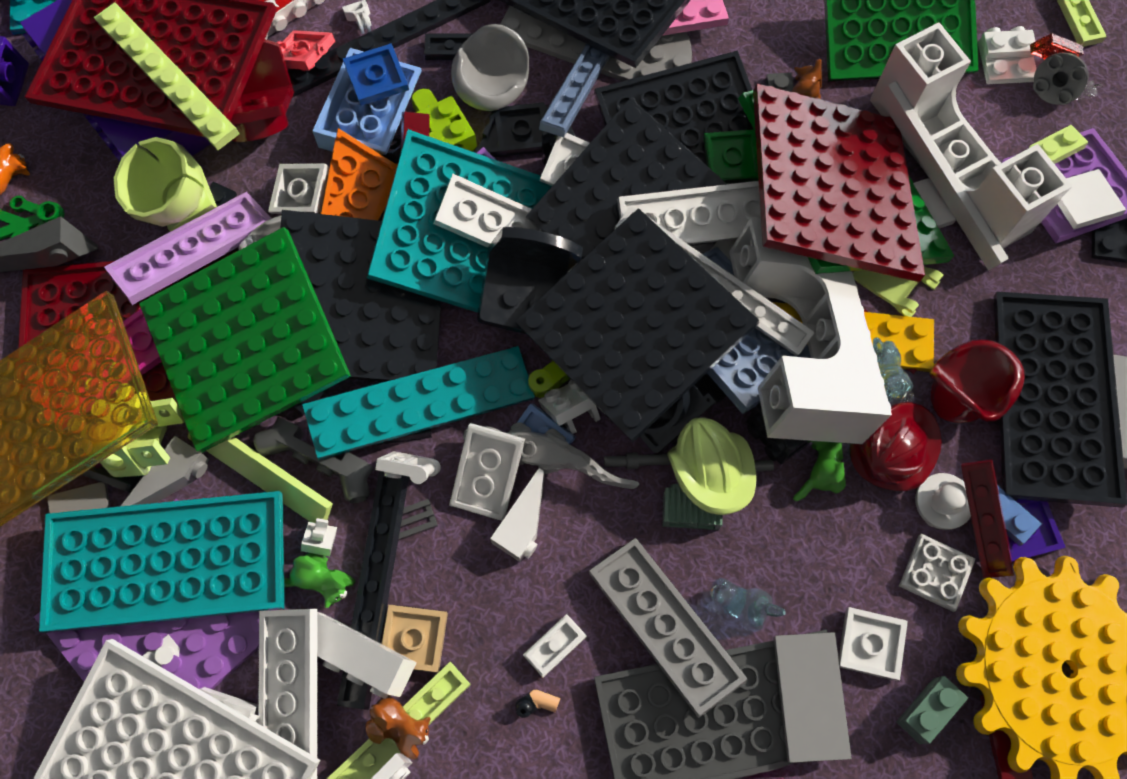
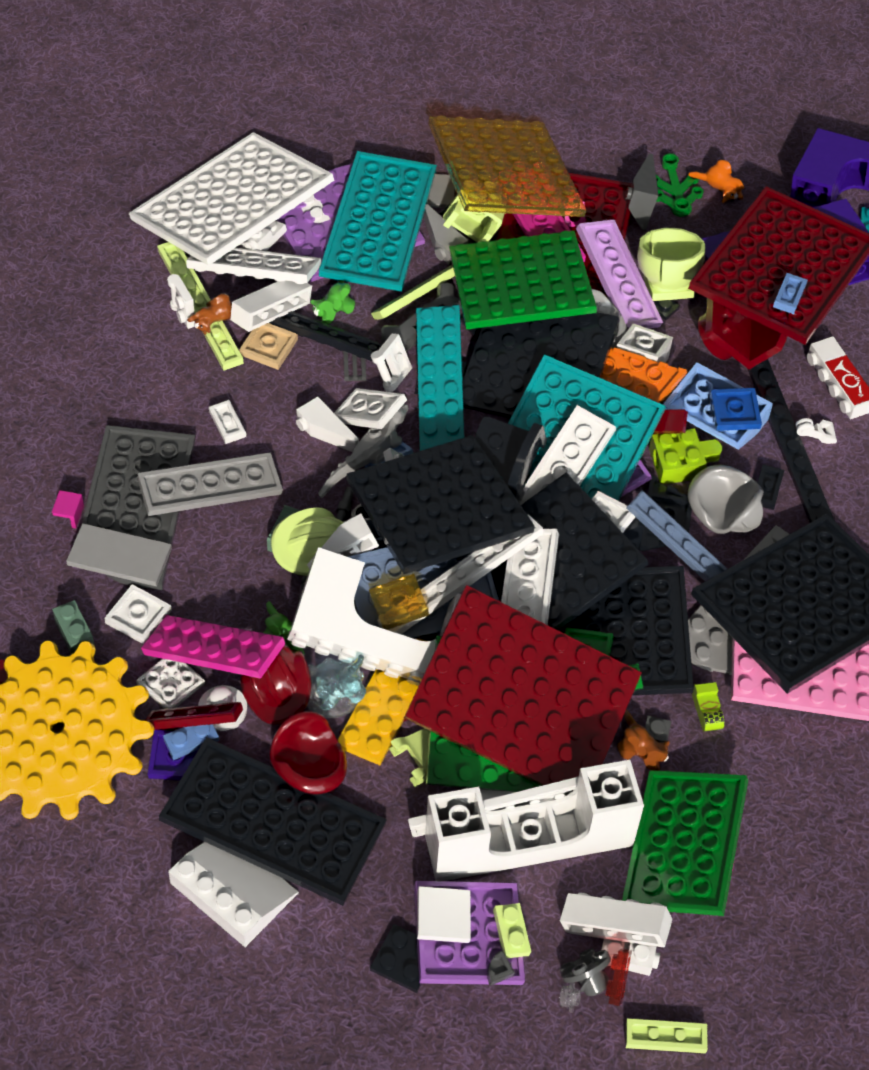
camera: 105 degrees right, 15 degrees down
(167, 76) = (754, 261): yellowish green plate -> none
(211, 26) = (790, 293): none -> medium blue plate
(305, 48) = (786, 380): coral plate -> none
(319, 538) = (361, 308): white tile -> none
(535, 700) = (195, 401): arm -> none
(721, 406) = (351, 538): none -> white slope
(746, 42) = (708, 706): none -> lime leg
(748, 605) = (205, 541): clear light blue animal -> none
(780, 330) = (399, 602): none -> clear yellow plate
(900, 527) = (213, 646): none -> dark pink plate
(1009, 60) = (616, 919): none -> white brick
(1101, 147) = (499, 969): none -> dark grey tile

